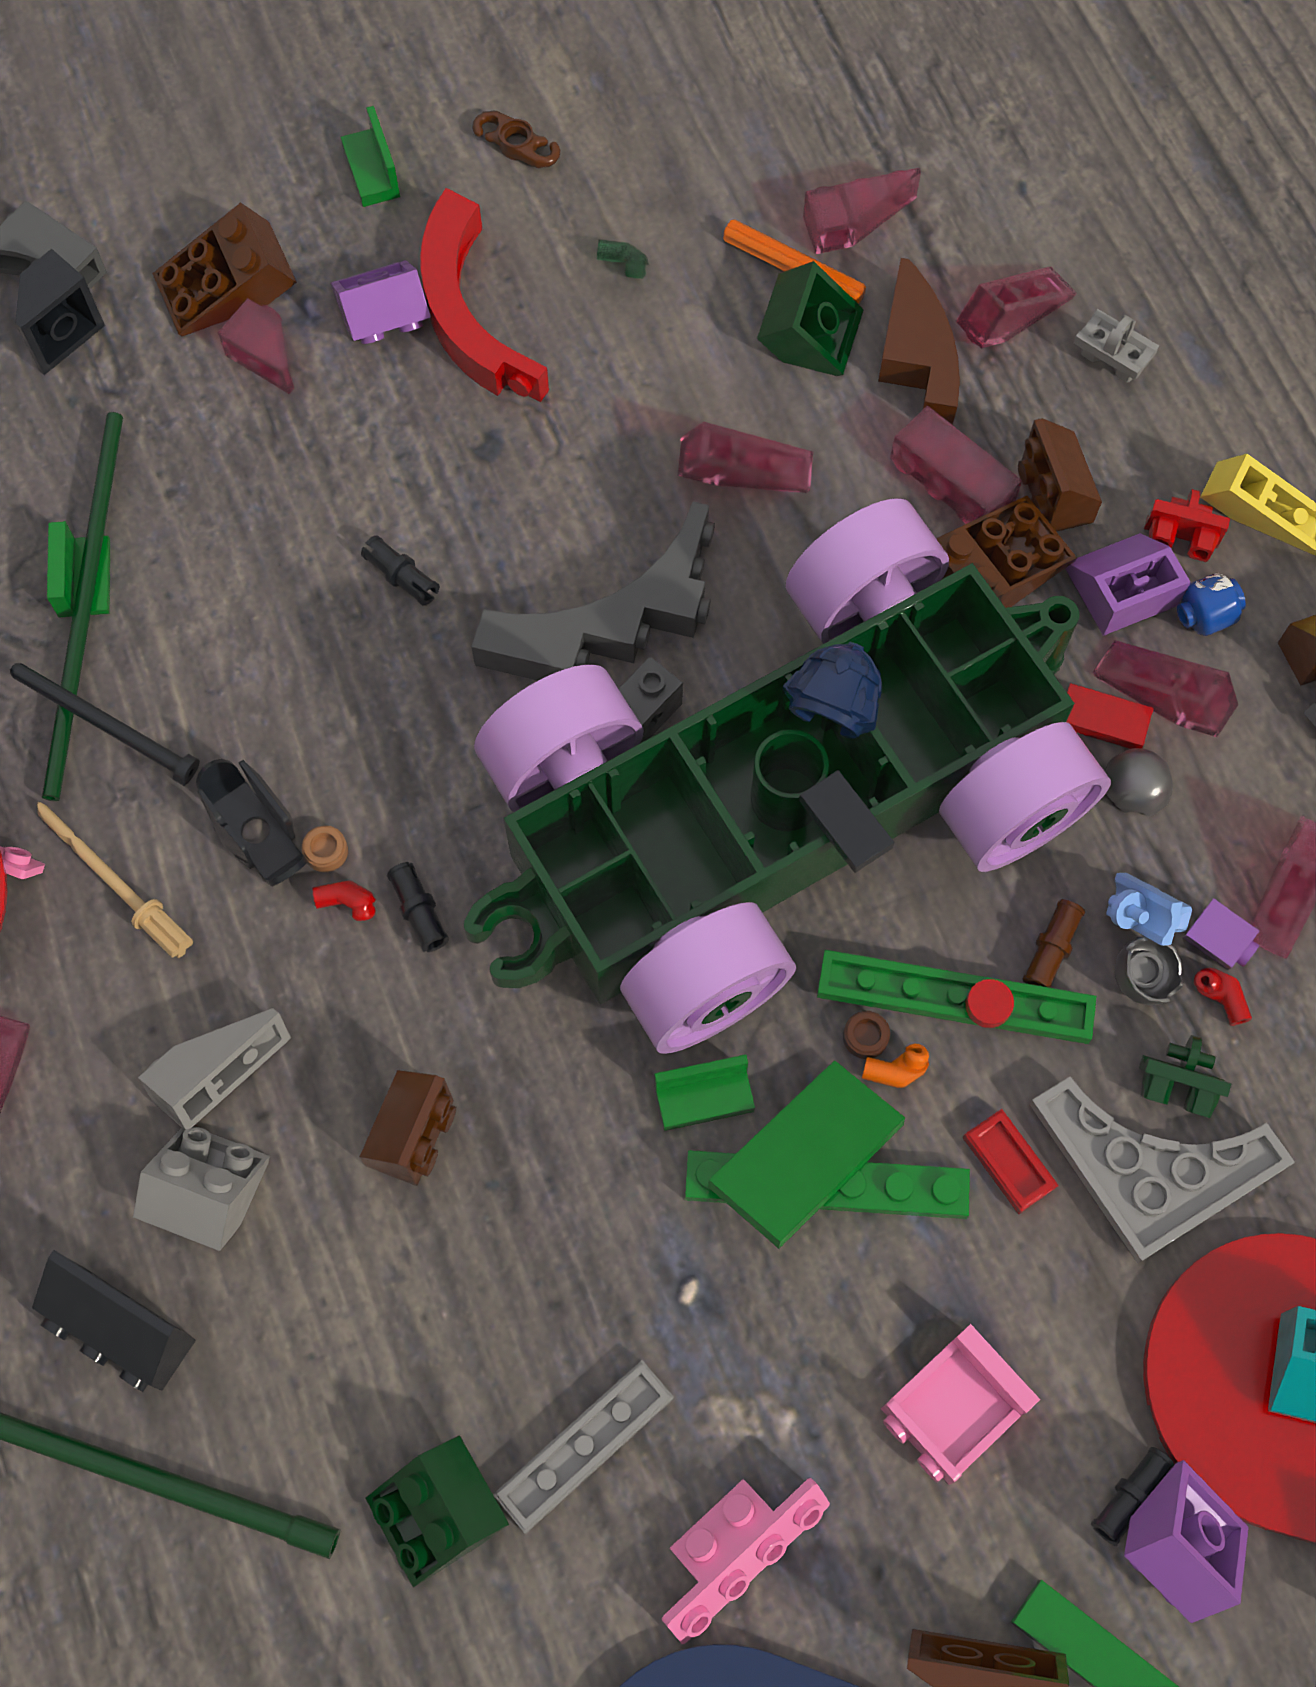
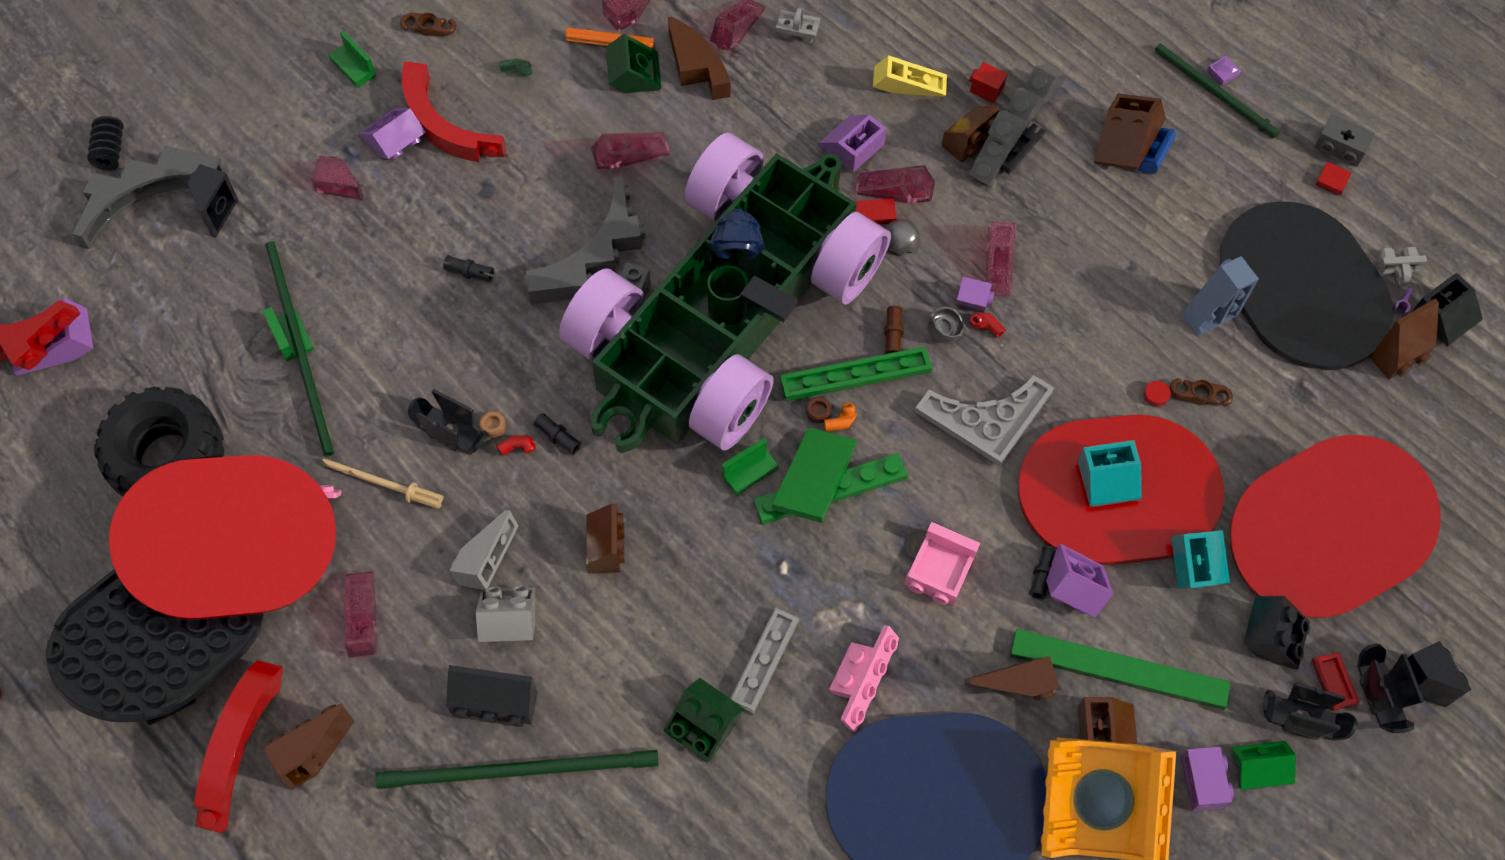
camera: 25 degrees left, 5 degrees down
(183, 768) = (395, 411): black bar -> none
(223, 269) = (295, 148): reddish brown slope -> none
(953, 467) = (742, 115): clear pink brick -> none
(989, 1003) = (874, 368): red tile -> none
(1010, 549) = (791, 142): reddish brown slope -> none
(1010, 1161) = (916, 442): red tile -> none
(1058, 476) = (797, 101): reddish brown slope -> none
(1147, 910) = (932, 294): light blue hips -> none
(1188, 522) = (872, 101): red hips -> none
(1203, 1089) = (973, 372): dark green hips -> none
(1211, 604) = (901, 137): blue head -> none

